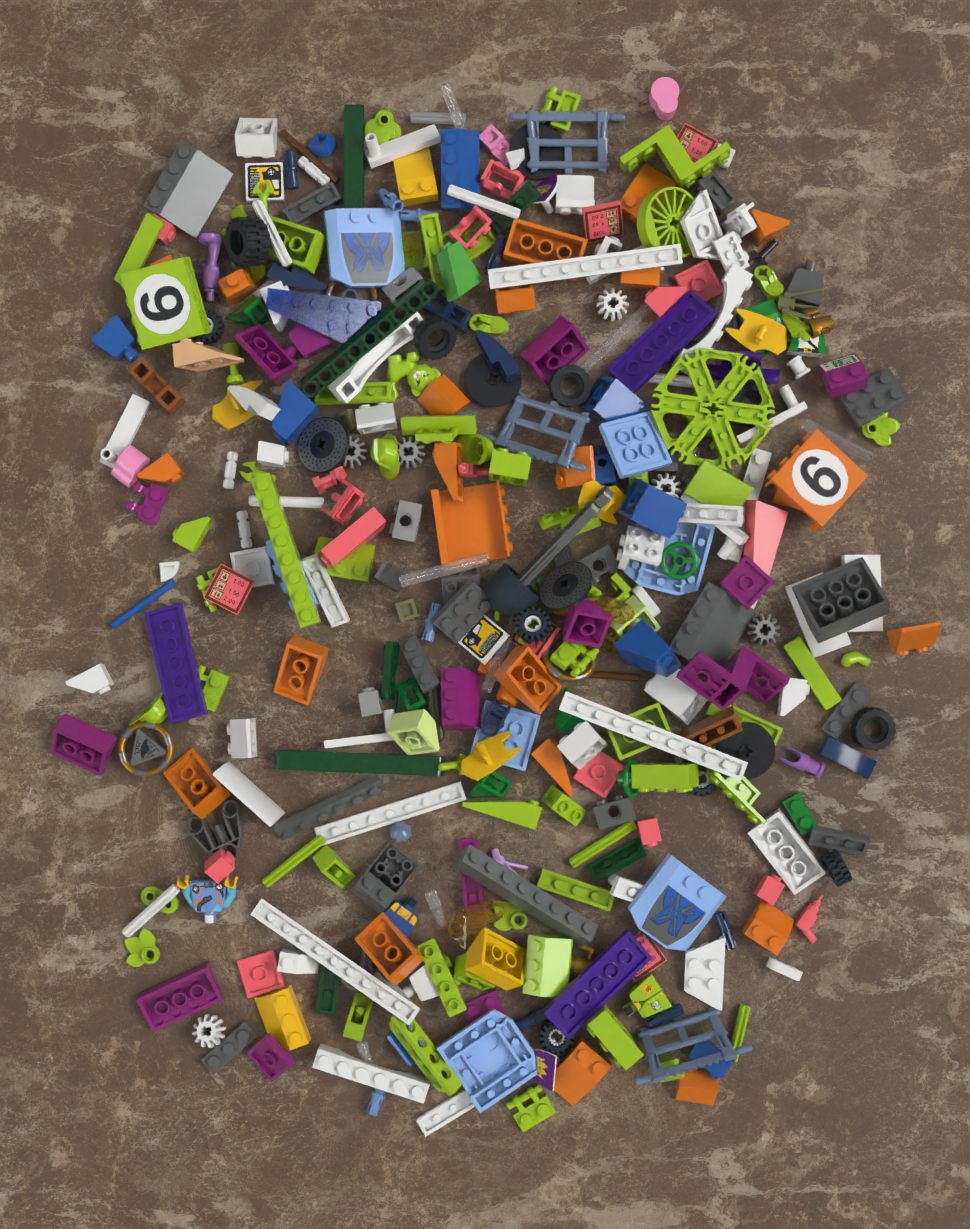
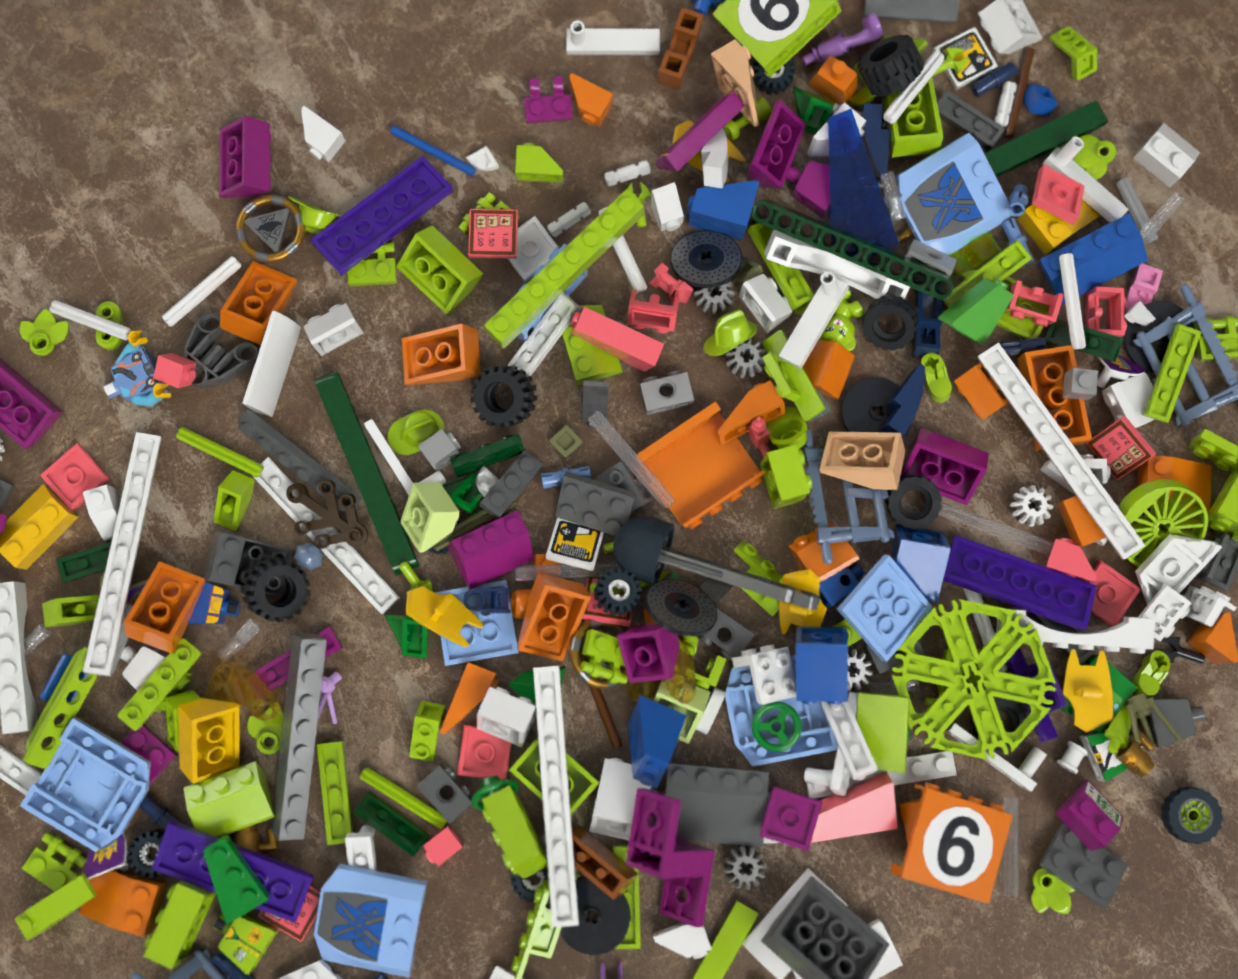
camera: 55 degrees right, 5 degrees down
(129, 465) = (578, 59): bright pink piece -> none
(167, 820) = (201, 291): none -> white axle
(229, 403) = (700, 132): none -> magenta slope
(236, 641) = (439, 269): none -> lime slope
(299, 98) = (1081, 51): none -> lime bracket
(345, 289) = (892, 196): none -> clear axle
(346, 714) = (412, 430): none -> lime piece
(353, 653) = (485, 396): none -> black tyre
(379, 803) = (330, 516): none -> dark brown plant
(401, 170) = (1058, 194): none -> coral plate
(407, 391) = (814, 320): none -> white piece
(407, 680) = (485, 481): none -> white tile
(408, 75) = (1167, 155): none -> white slope
(424, 855) = (289, 602): none -> black tyre
(514, 811) = (393, 678): lime slope -> none
(523, 405) = (864, 458): none -> light nougat slope
(545, 228) = (1080, 384): none -> light grey brick
(562, 1118) = (55, 907): none -> lime slope
(568, 157) = (1172, 373): none -> lime tile
(603, 985) = (233, 880): none -> green wing
(883, 297) = (1205, 820): none -> black wheel

